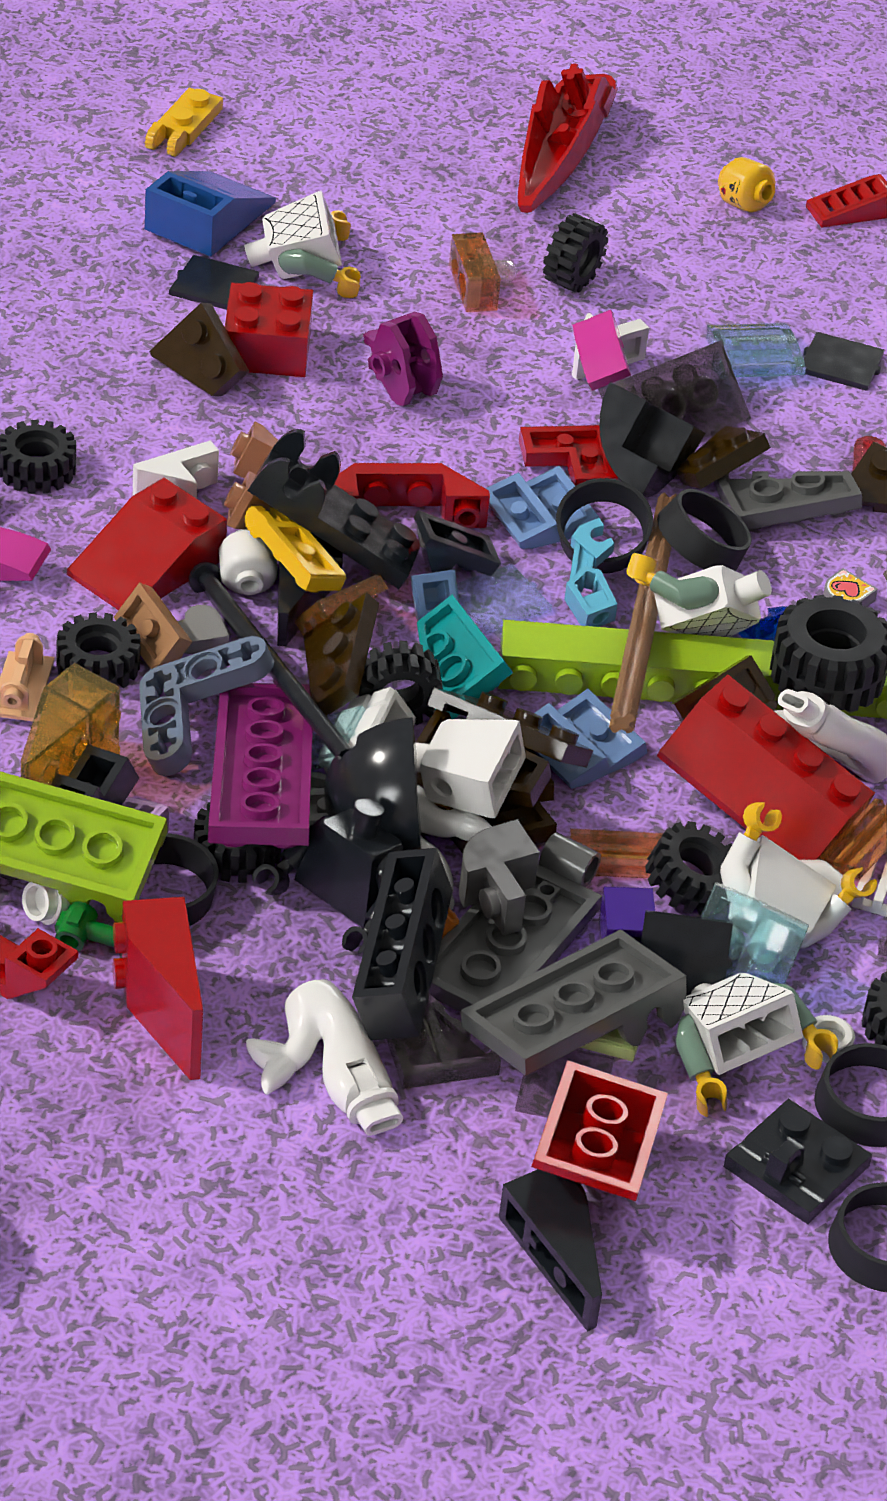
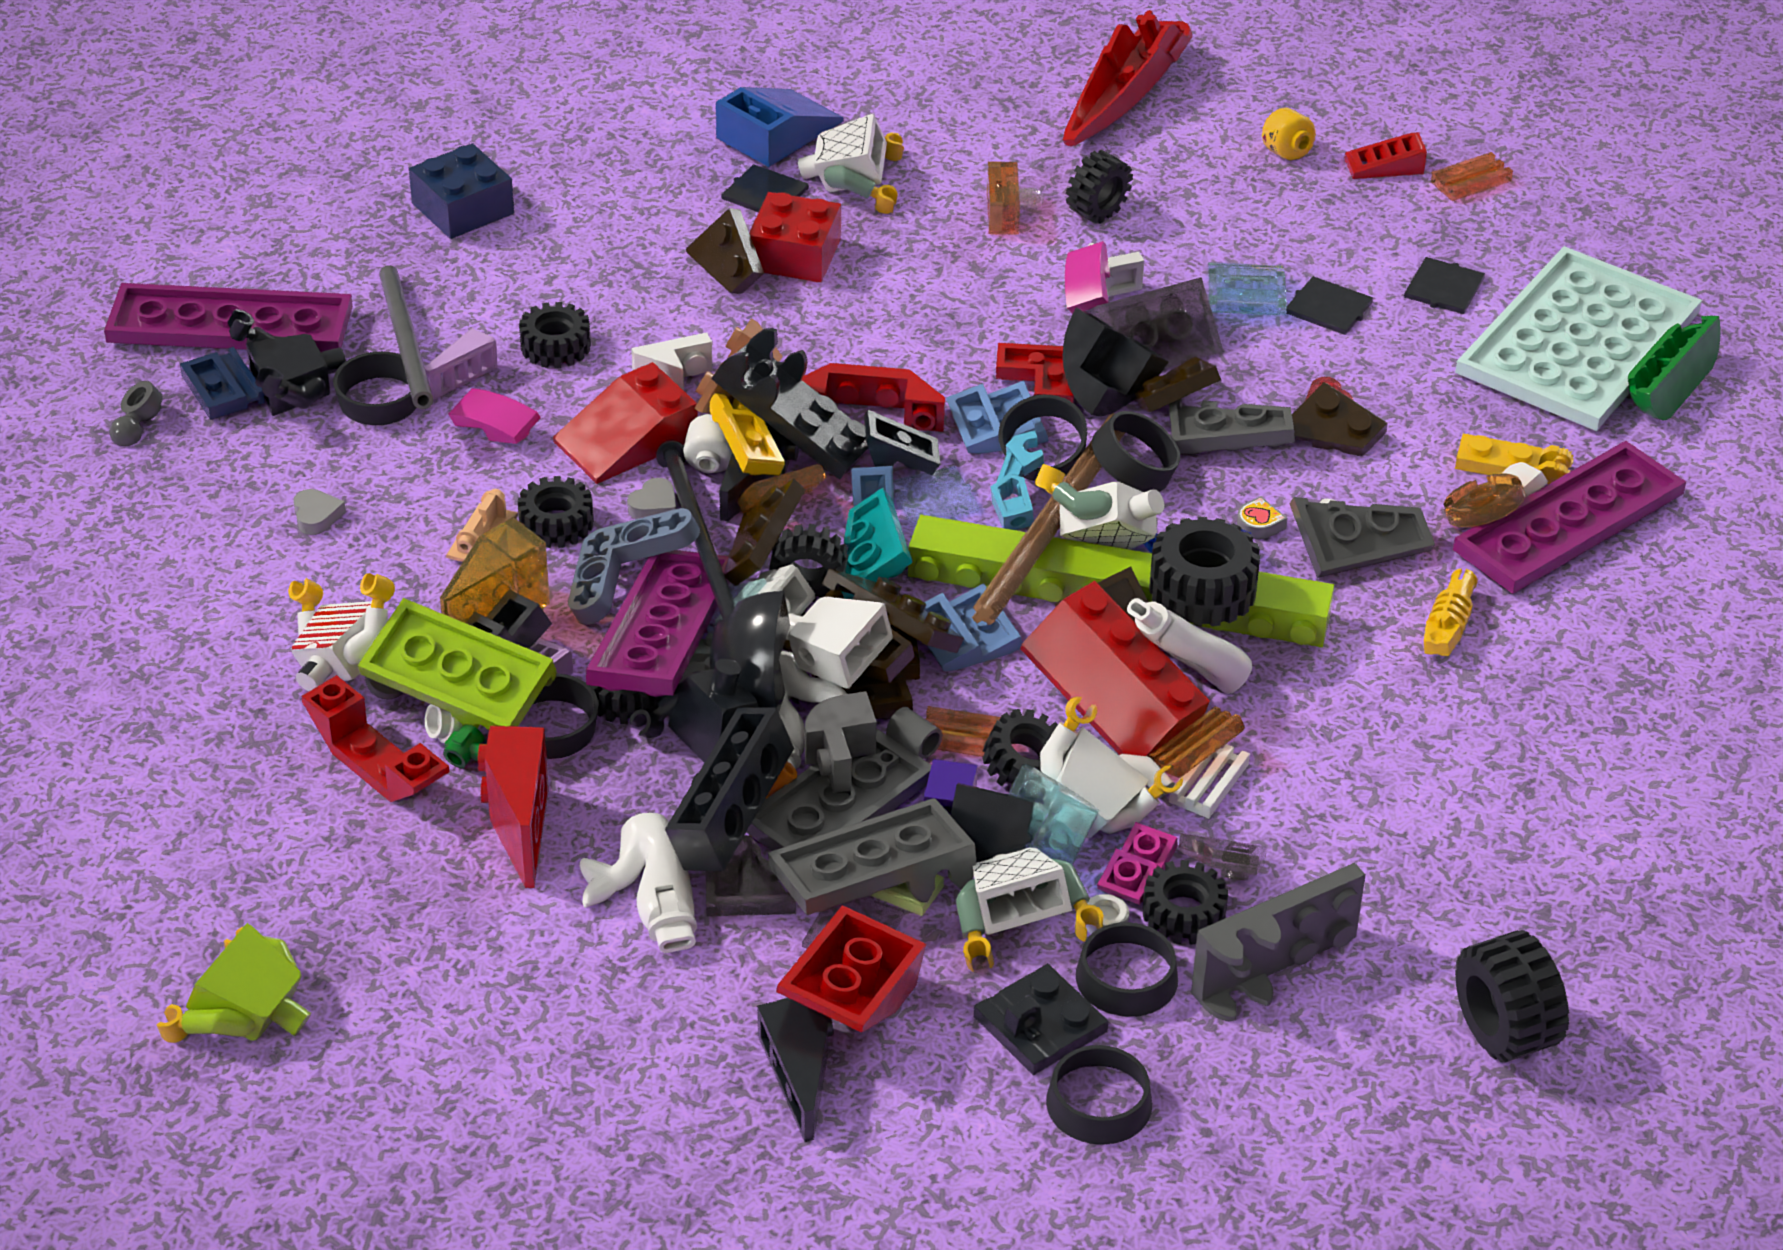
camera: 15 degrees right, 0 degrees up
(159, 631) = (609, 493): medium nougat plate -> none
(184, 120) = (782, 41): yellow hinge -> none
(405, 357) = (908, 271): magenta hinge -> none
(845, 977) = (1136, 860): none -> dark pink slope

